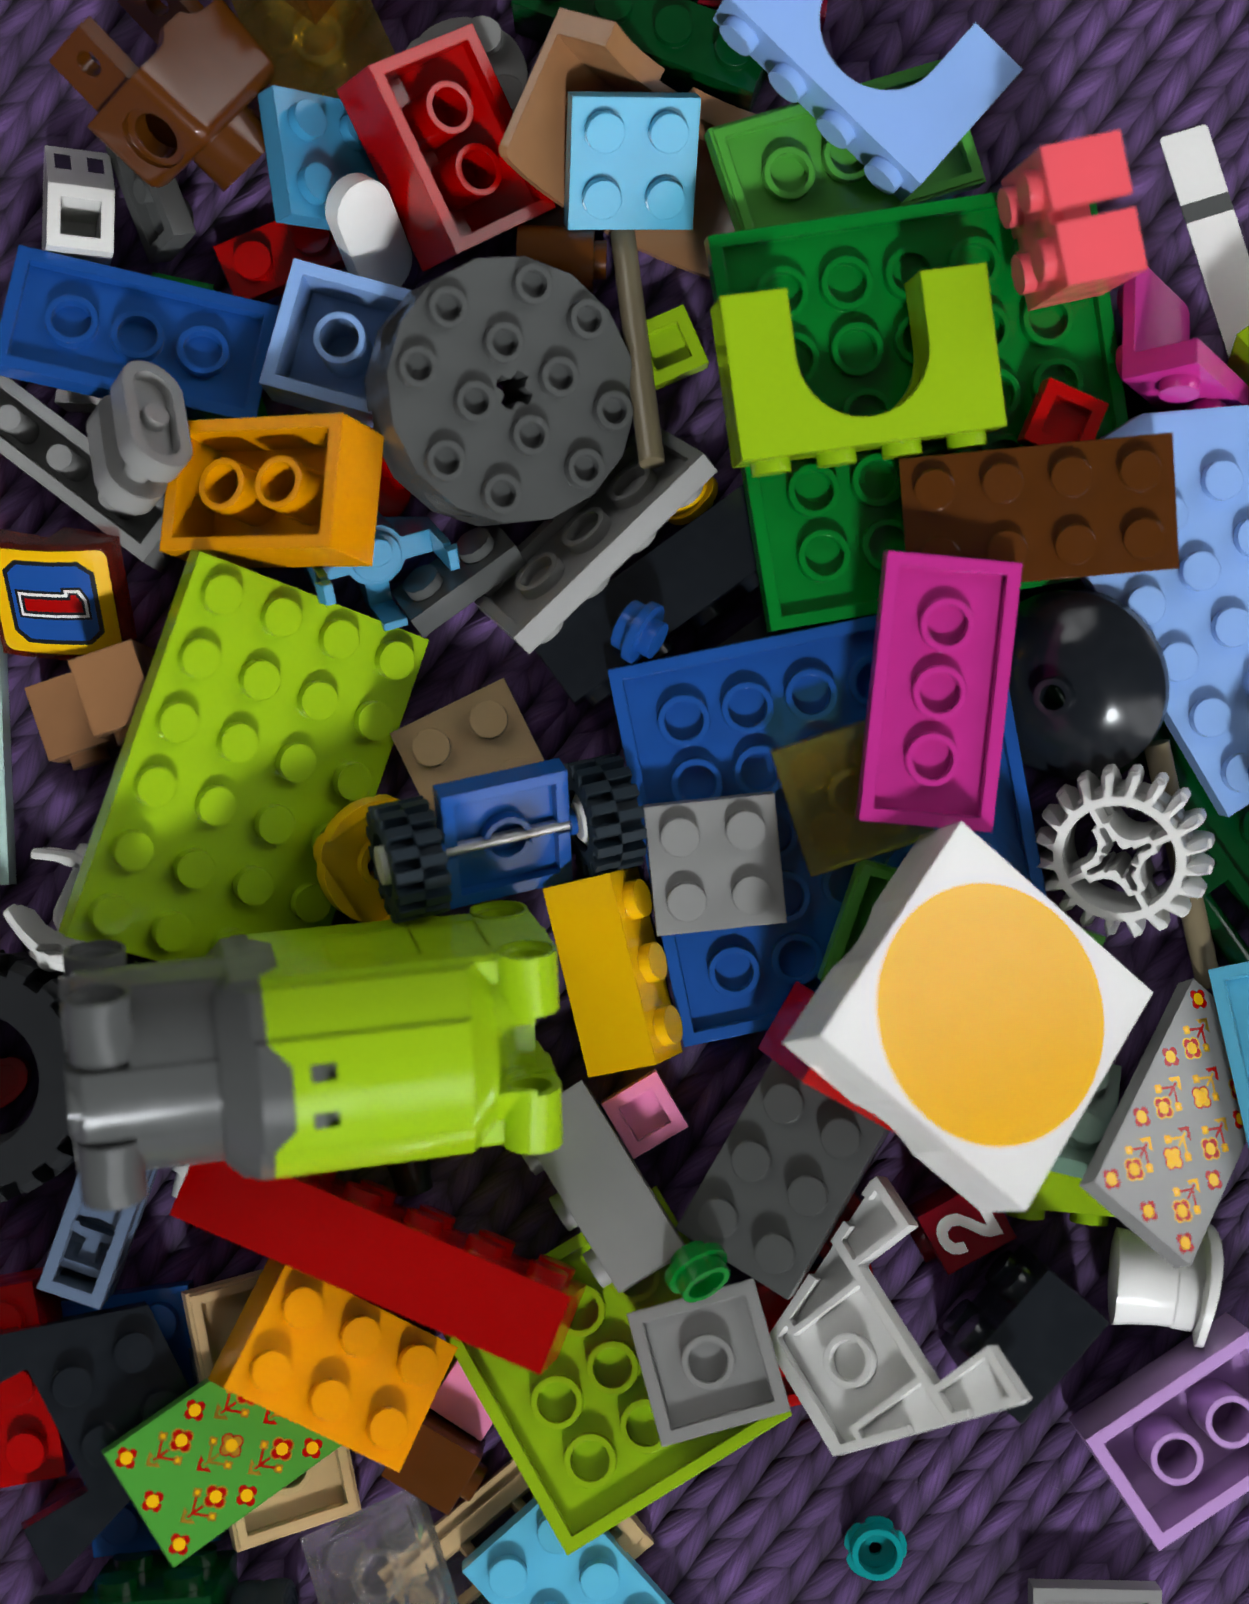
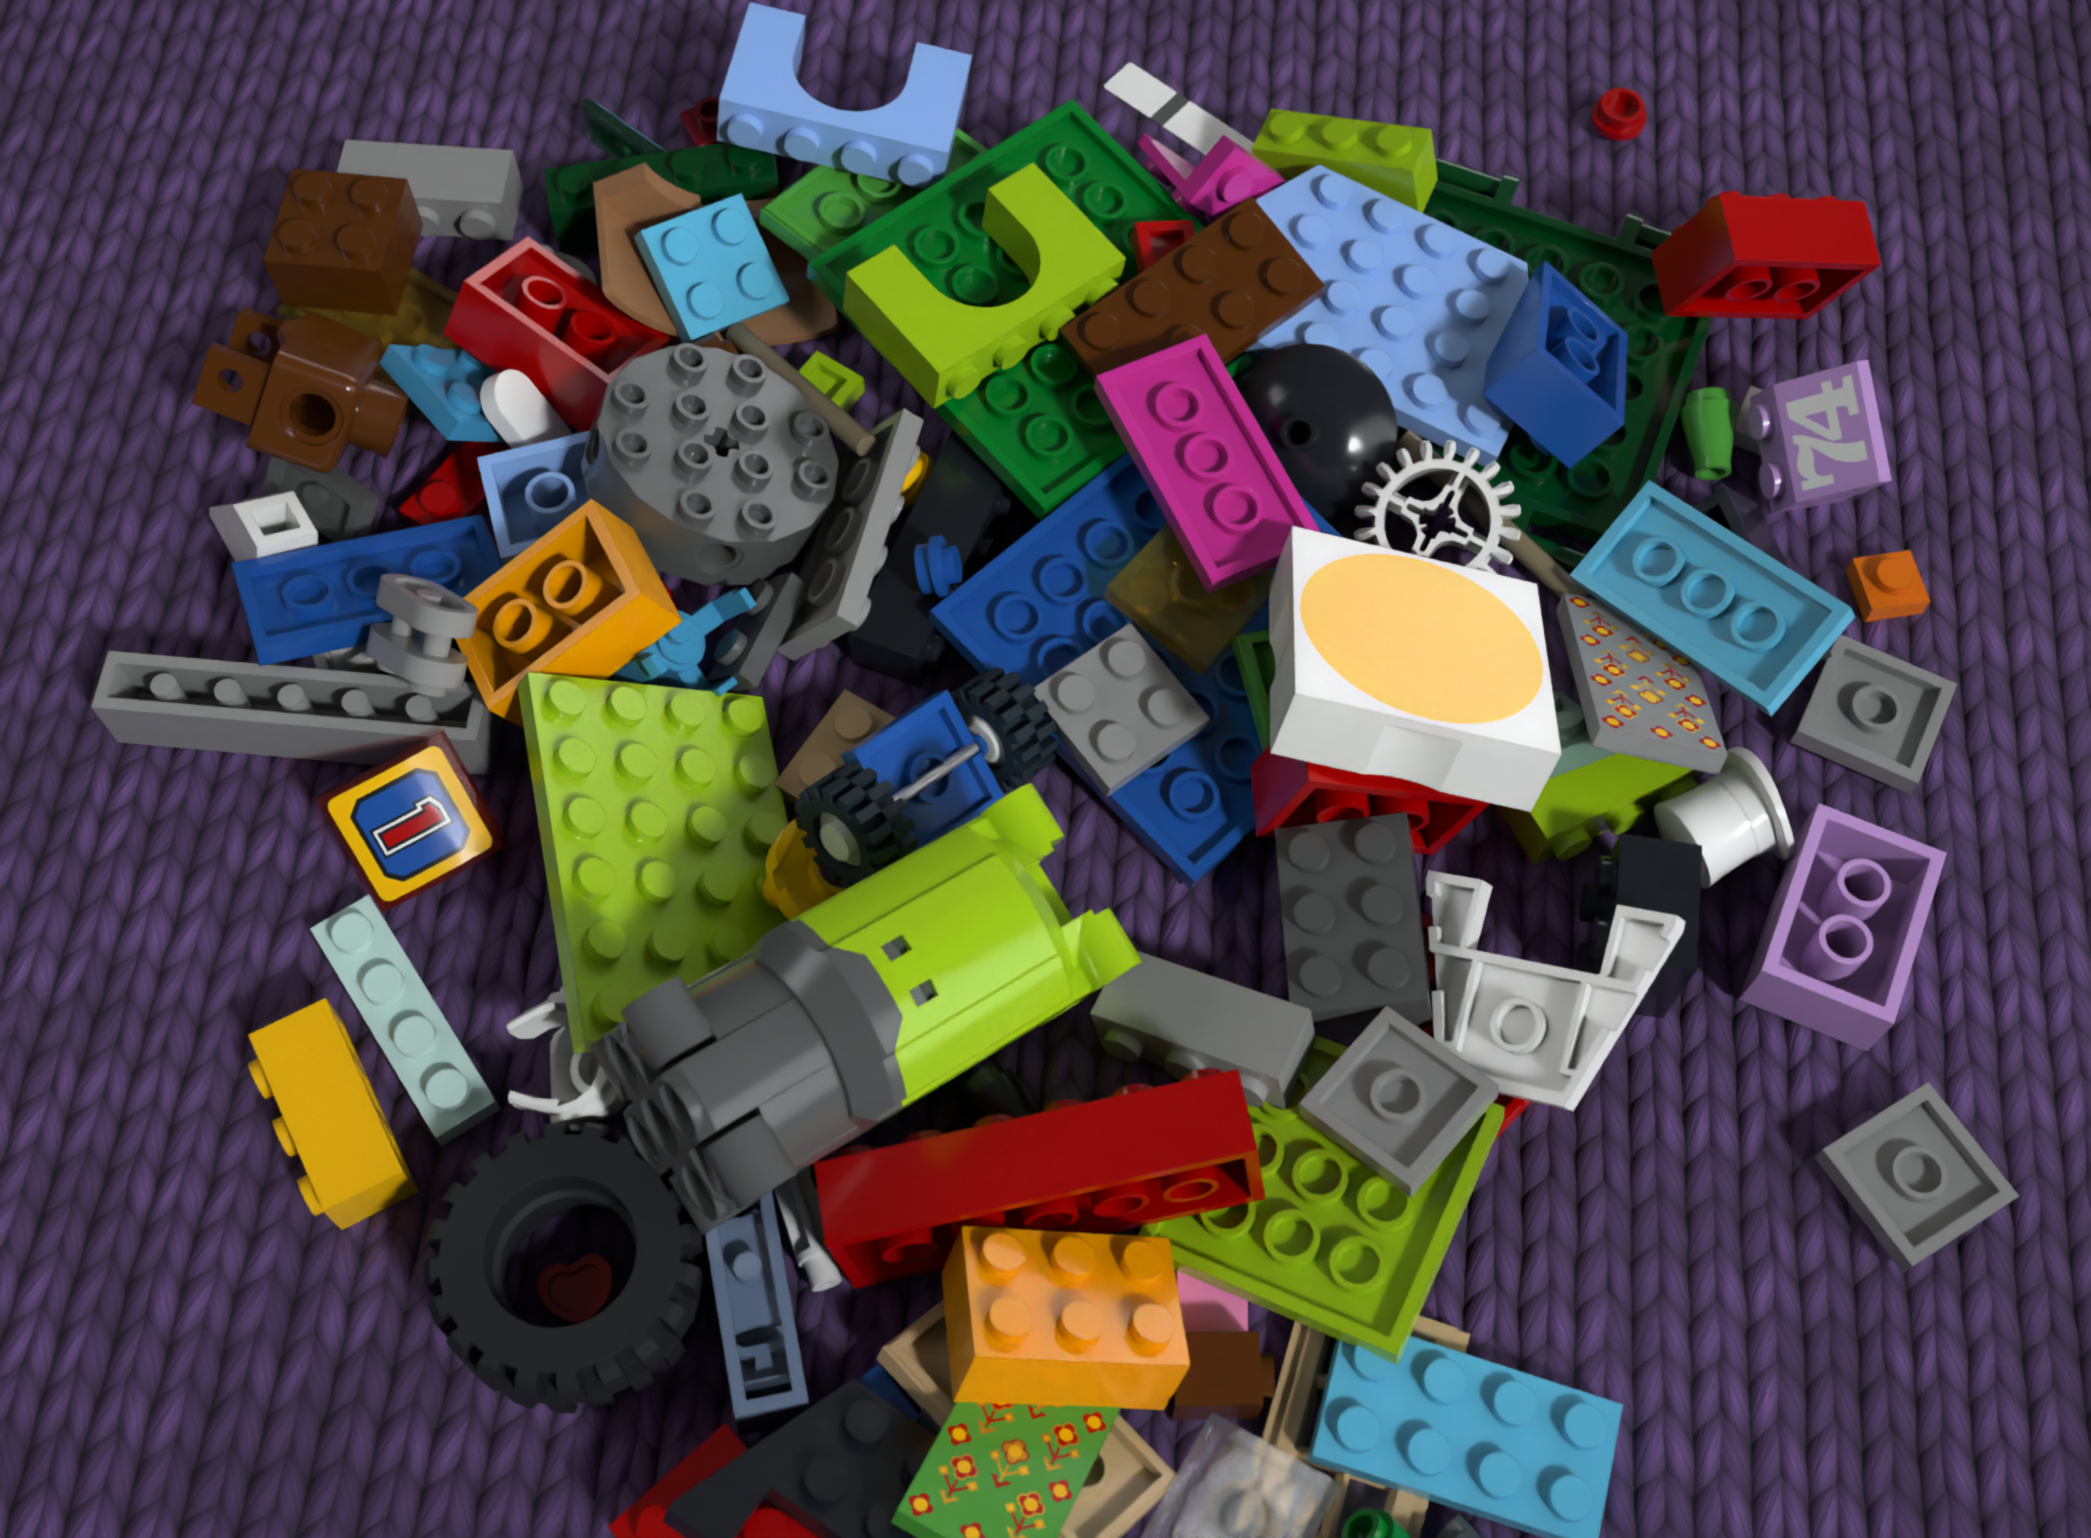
camera: 30 degrees left, 25 degrees down
(92, 705) = (501, 893): medium nougat brick -> none
(614, 971) = (1103, 857): yellow brick -> none
(644, 1113) = (1202, 948): bright pink plate -> none
(697, 1270) = (1334, 1019): green plate -> none
(887, 1560) = (1675, 1197): teal plate -> none
(956, 1230) = (1527, 885): dark red brick -> none
(1061, 246) = (1086, 130): coral piece -> none

